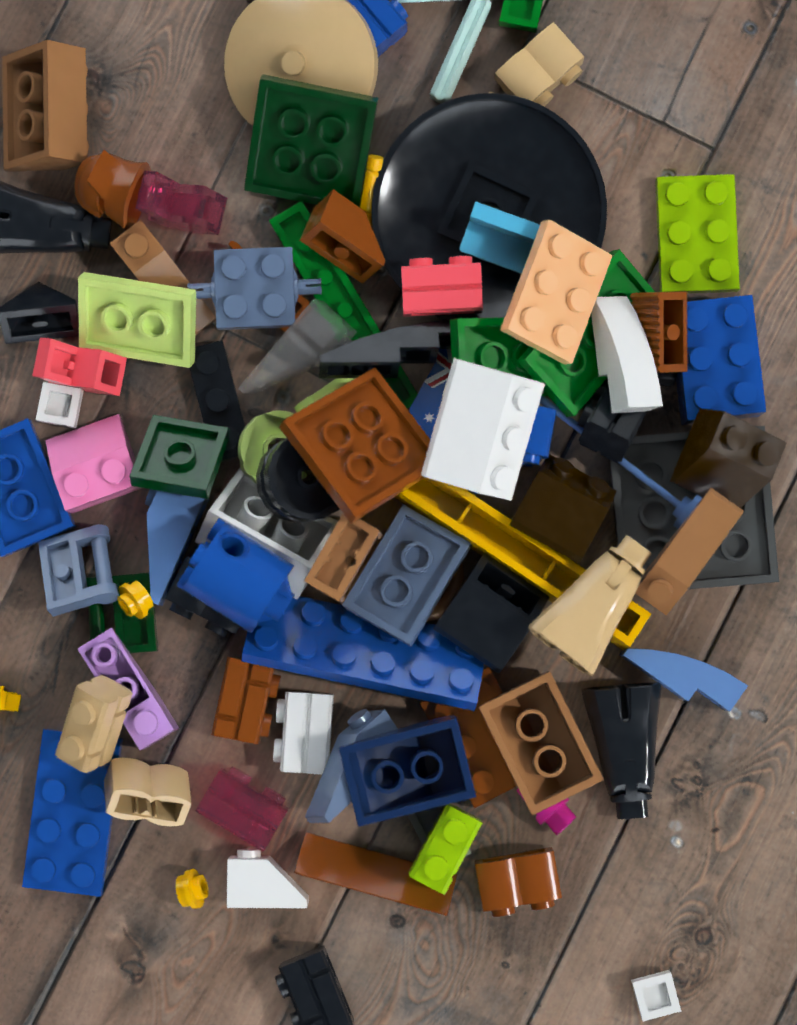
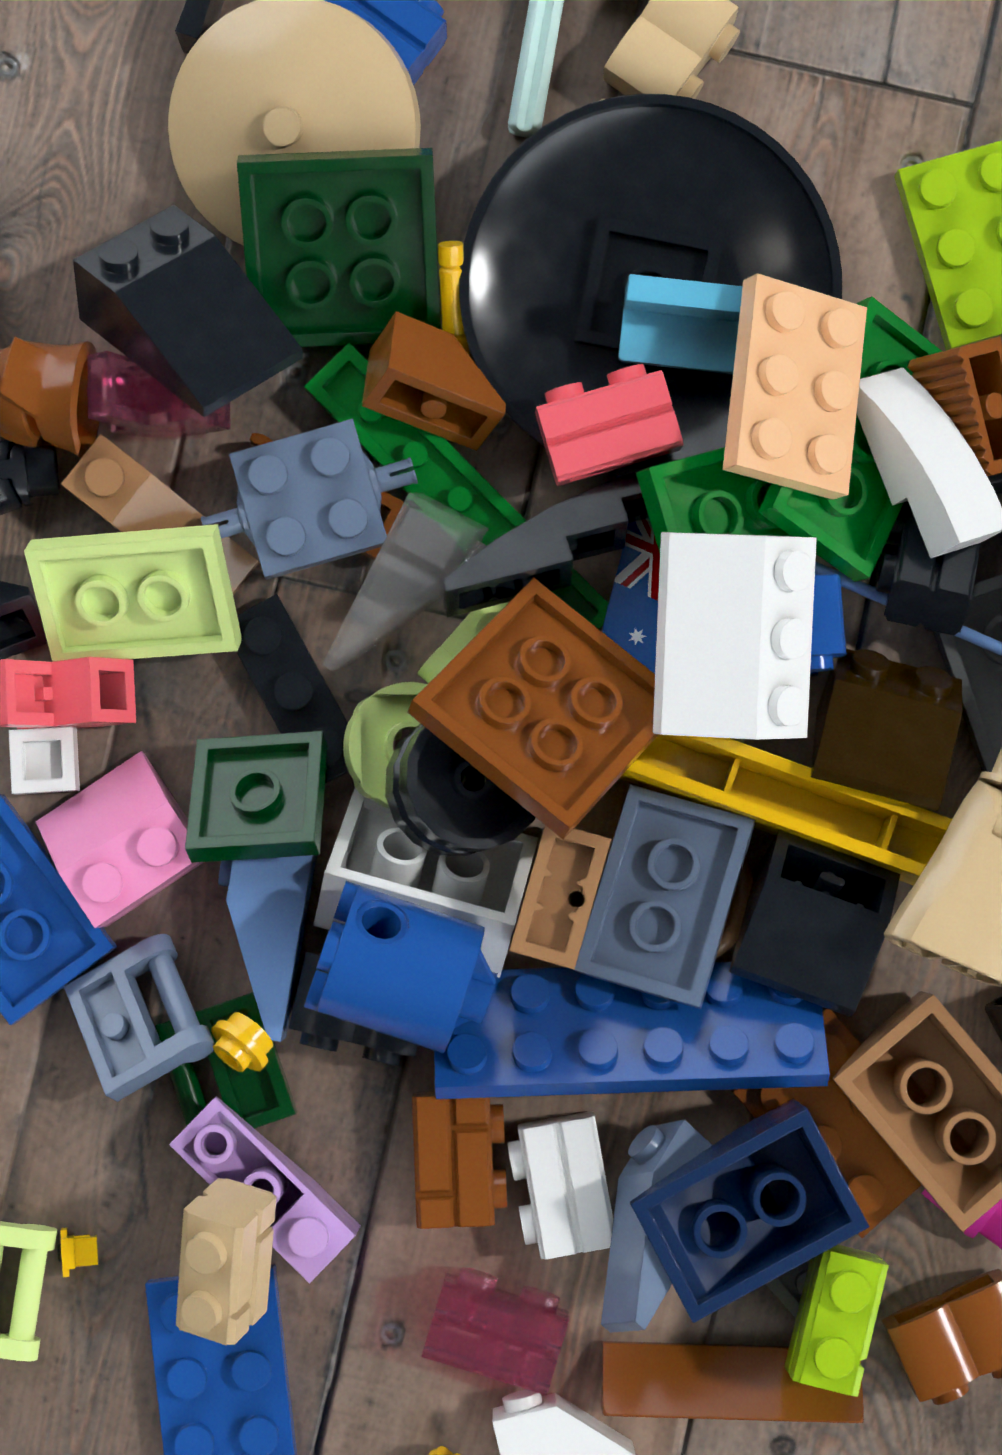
camera: 15 degrees left, 0 degrees up
(147, 792) = (337, 1346): tan brick -> none
(207, 158) = (182, 311): none -> black slope

